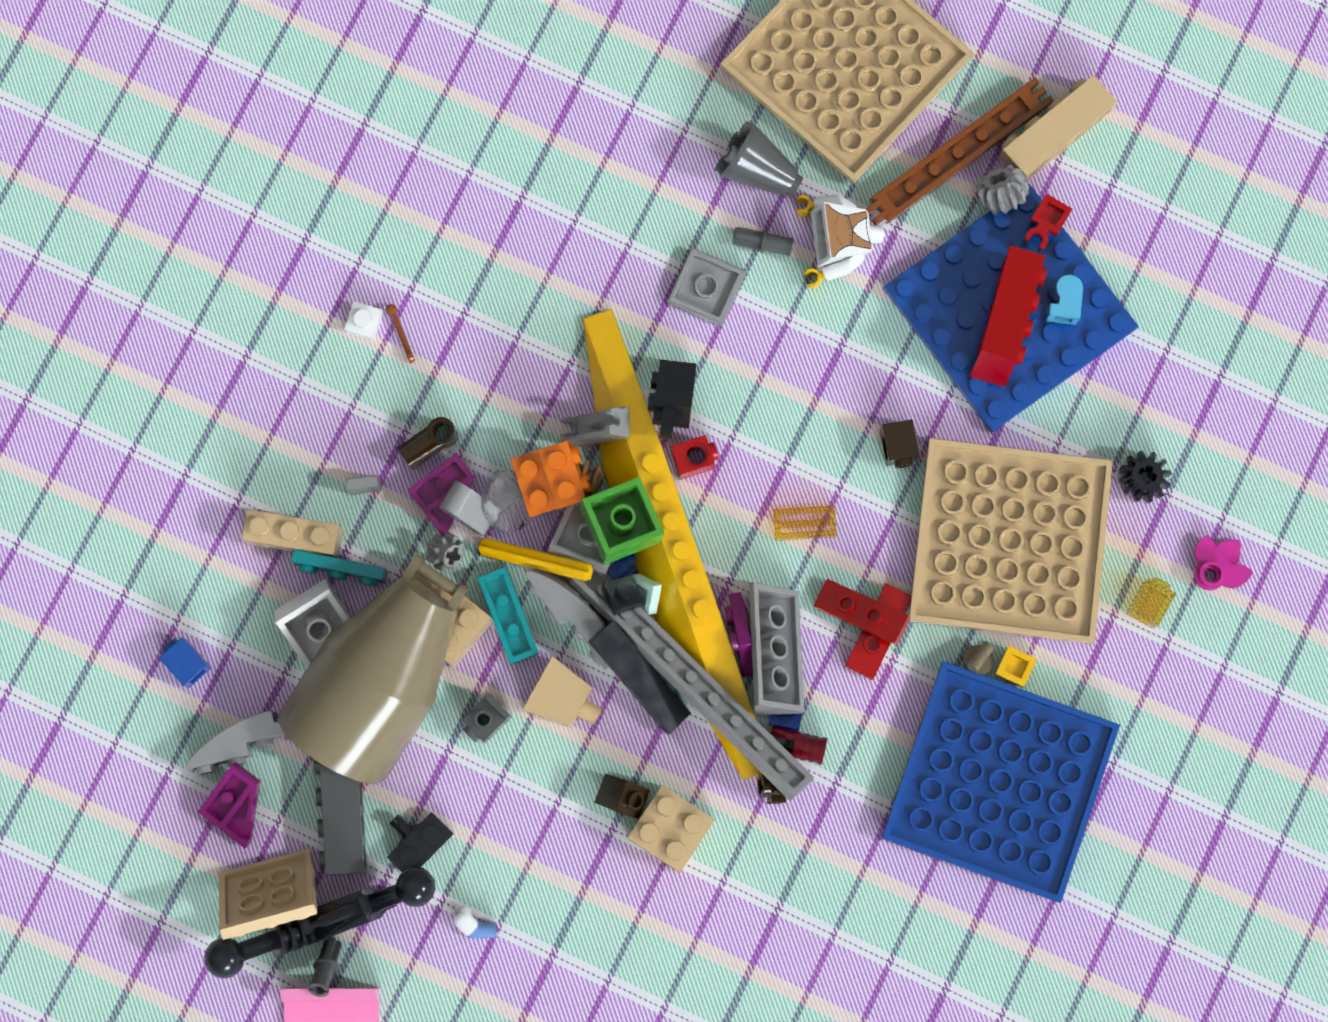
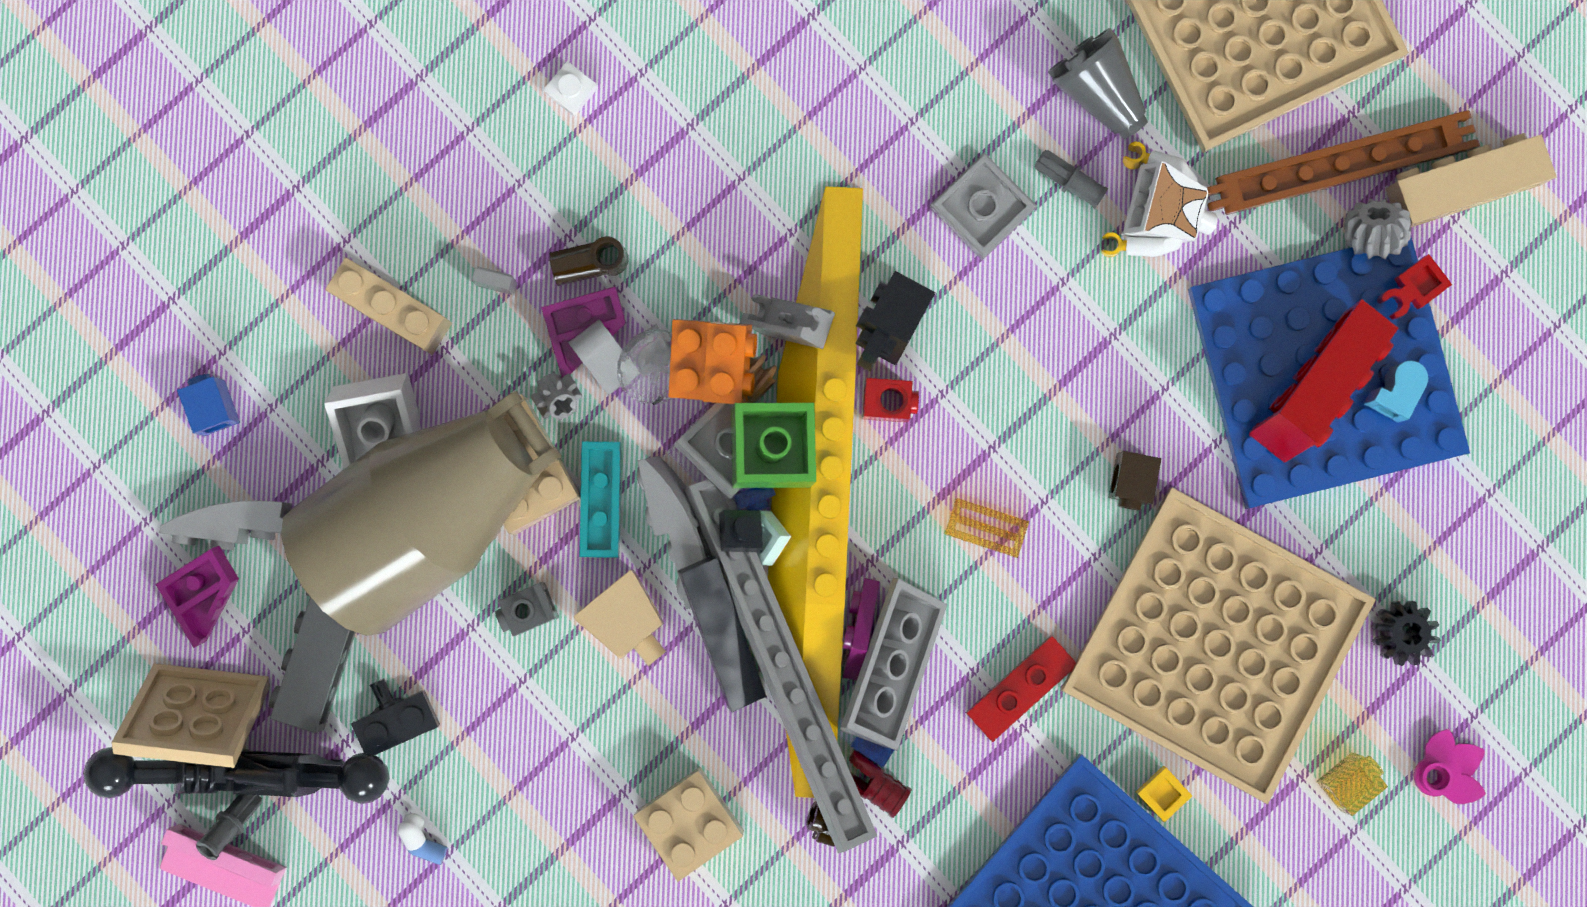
camera: 15 degrees right, 5 degrees up
(339, 568) = (427, 367): teal plate -> none
(391, 310) = (608, 88): dark orange hinge -> none
(535, 559) = (657, 448): yellow axle -> none
(622, 796) = (647, 763): dark brown brick -> none
(861, 612) = (1011, 660): red plate -> none
(979, 658) = (1124, 767): dark tan plate -> none

